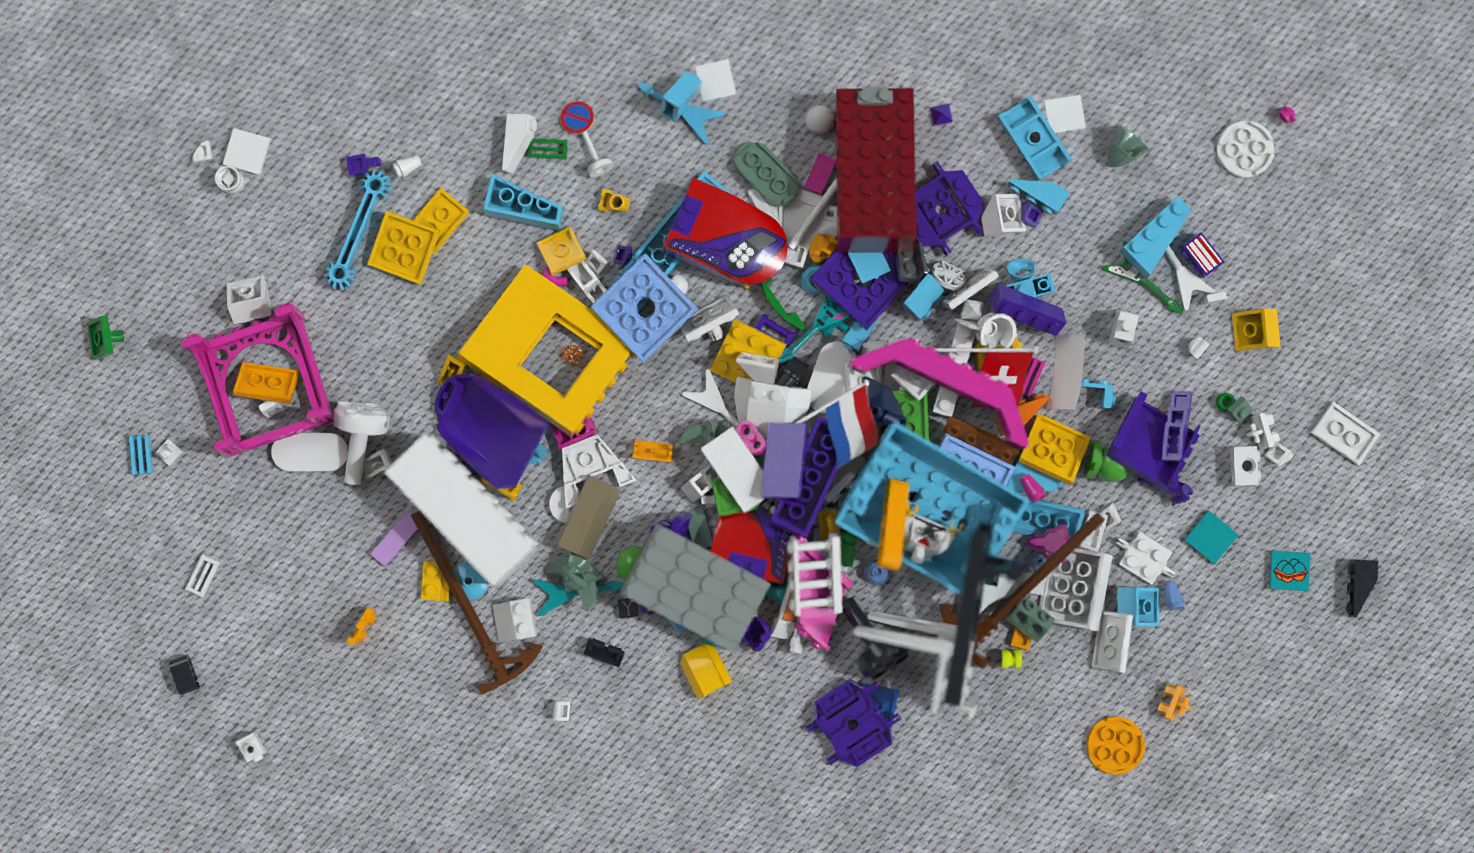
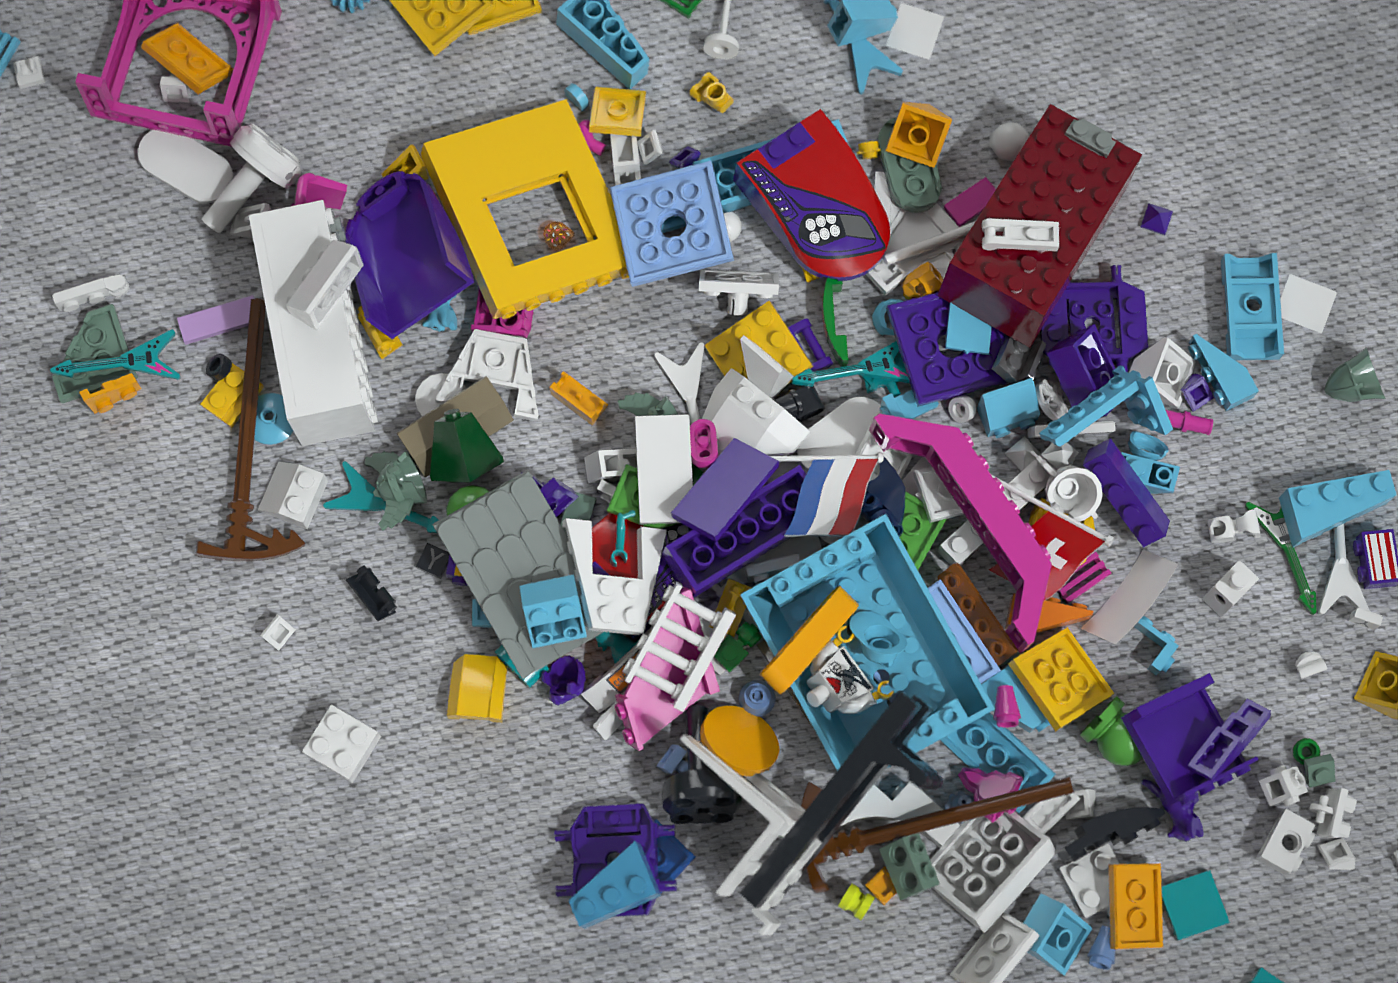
camera: 30 degrees right, 10 degrees down
(306, 570) = (91, 292): none -> white hinge
(335, 609) = (98, 339): none -> sand green plate
(366, 594) = (140, 359): none -> teal piece
(405, 421) = (317, 188): none -> dark pink piece
(417, 569) = (218, 367): none -> black tile
(462, 489) = (324, 283): none -> white slope
(529, 256) = (576, 96): none -> medium azure tile
(605, 532) = (461, 448): none -> dark green slope
(645, 754) = (341, 743): none -> white piece
(728, 602) = (553, 611): none -> medium azure slope
(733, 521) = (620, 537): none -> teal piece
(734, 179) = (868, 149): none -> yellow plate
(761, 151) = (919, 133): none -> light orange slope
(762, 571) = (613, 601): none -> white wing
(850, 641) = (673, 760): none -> light blue tile
(867, 742) = (616, 888): none -> dark azure wedge
(872, 193) = (1020, 234): none -> white plate
(884, 606) = (740, 740): none -> light orange tile
(894, 314) = (962, 408): none -> white tile
(932, 495) = (878, 637): none -> medium azure piece
(946, 319) = (1020, 453): none -> white slope
(959, 247) = (1081, 364): none -> dark purple slope
(988, 244) = (1139, 396): none -> medium azure bracket
(1035, 238) = (1189, 422): none -> dark pink pin
(1099, 291) = (1224, 528): none -> white leg
(1140, 518) = (1113, 827): none -> black slope
(1178, 560) = (1135, 906): none -> light orange tile
(1224, 433) = (1283, 786): none -> white brick

